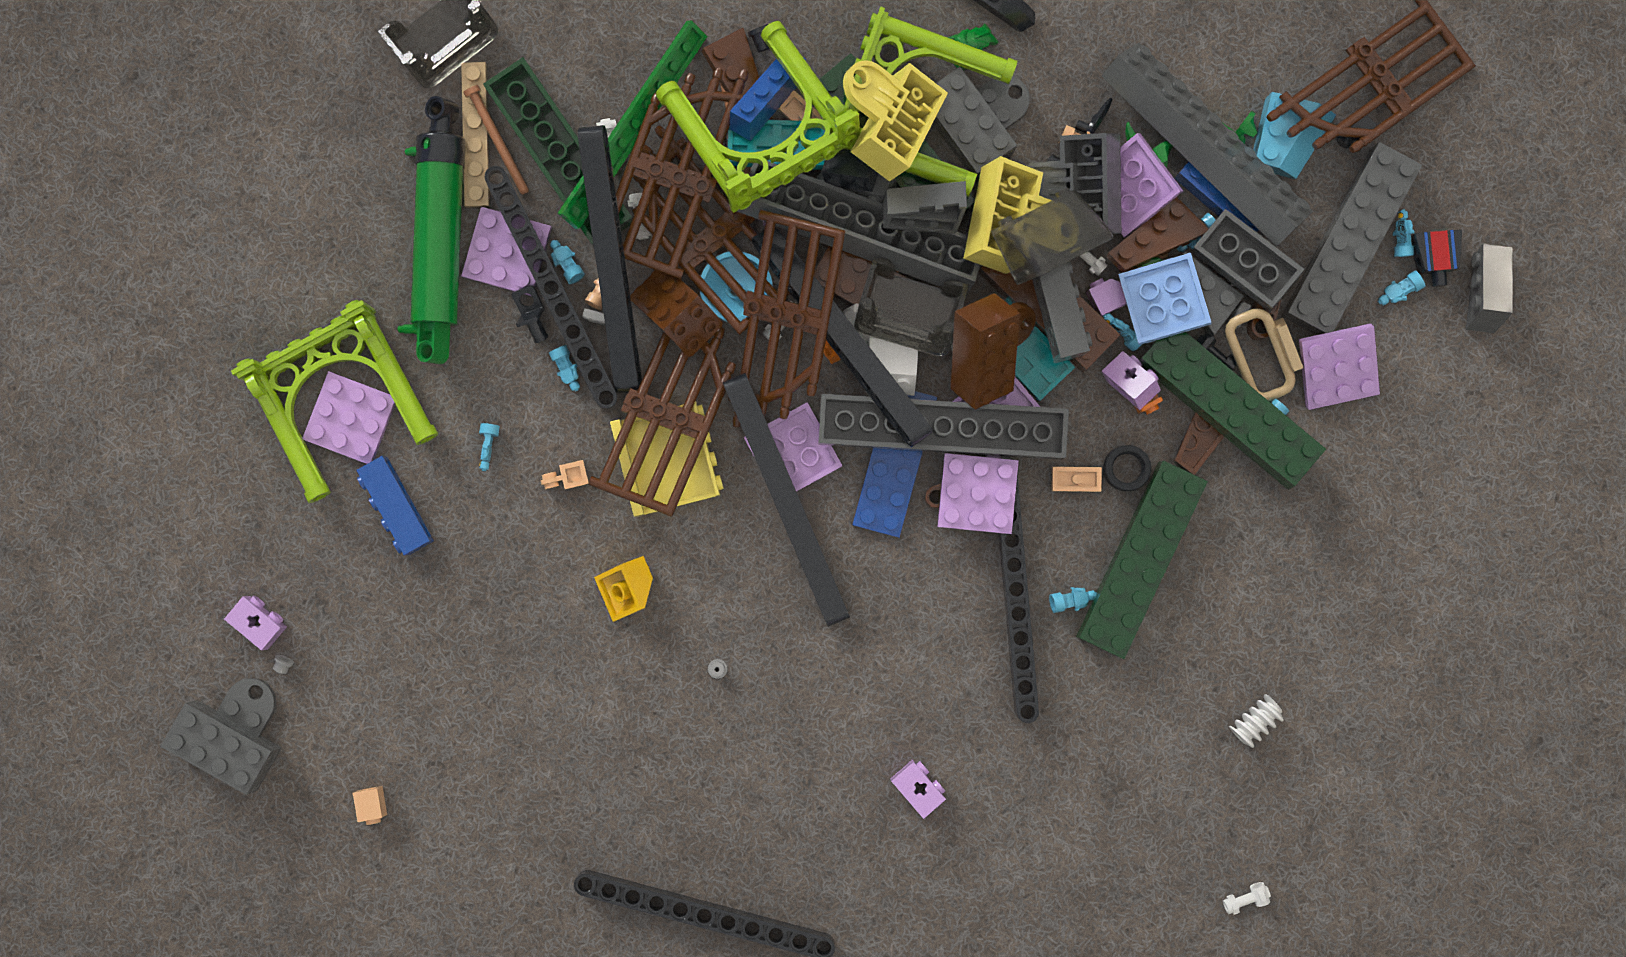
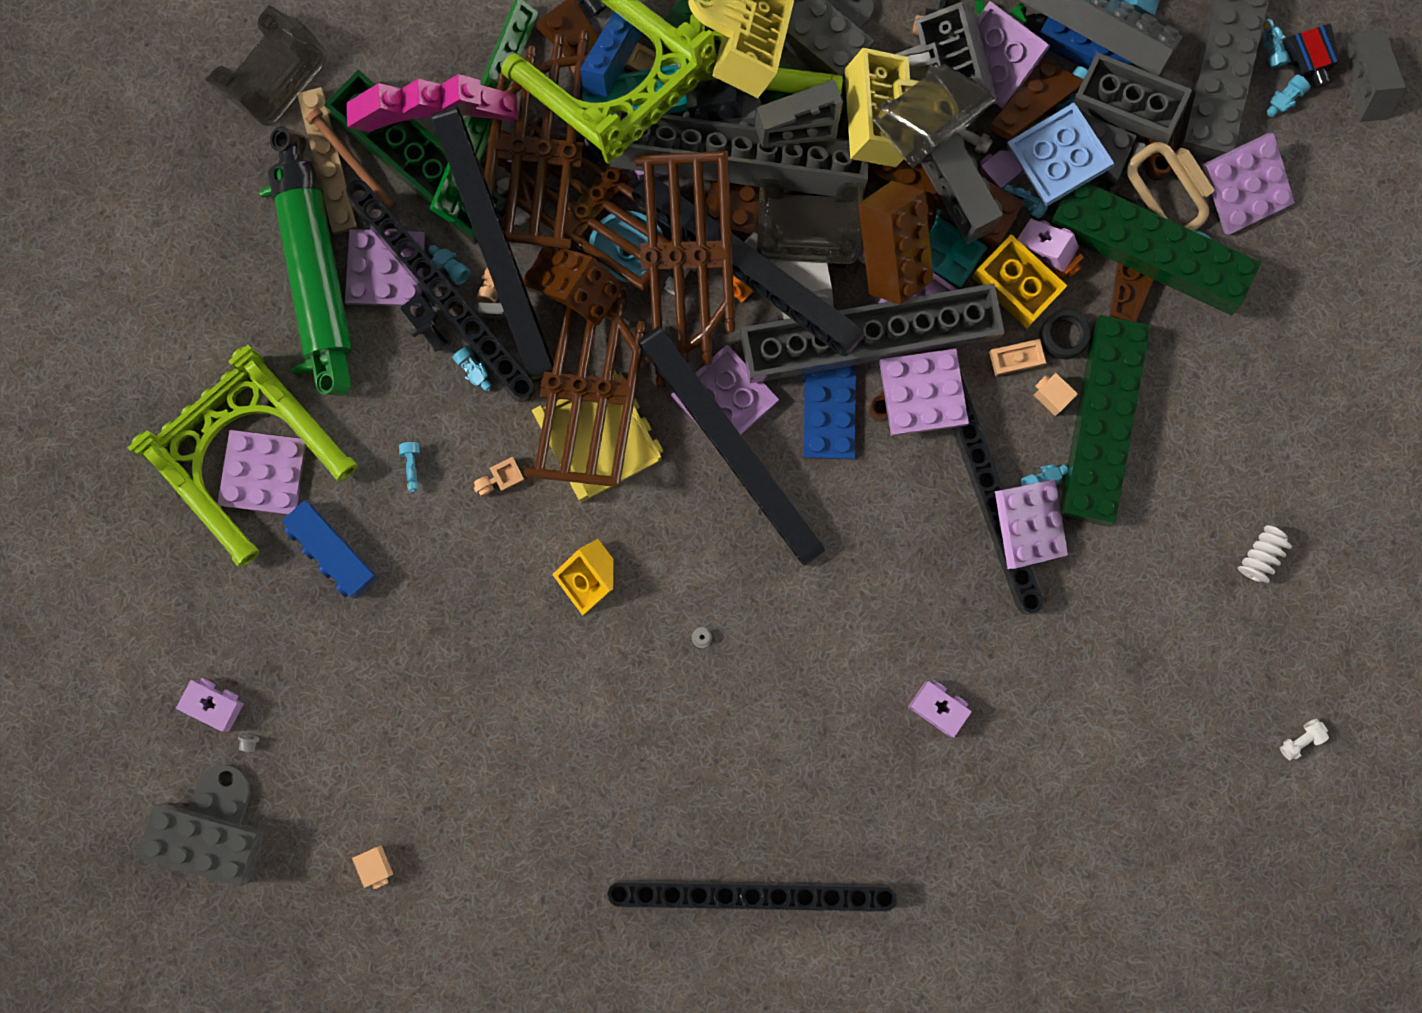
camera: 20 degrees left, 5 degrees down
(577, 109) = (422, 98): none -> dark pink arch
(1045, 641) = (1031, 523): none -> lavender plate
(1096, 408) = (1020, 281): none -> yellow brick
(1101, 522) = (1054, 393): none -> light nougat brick

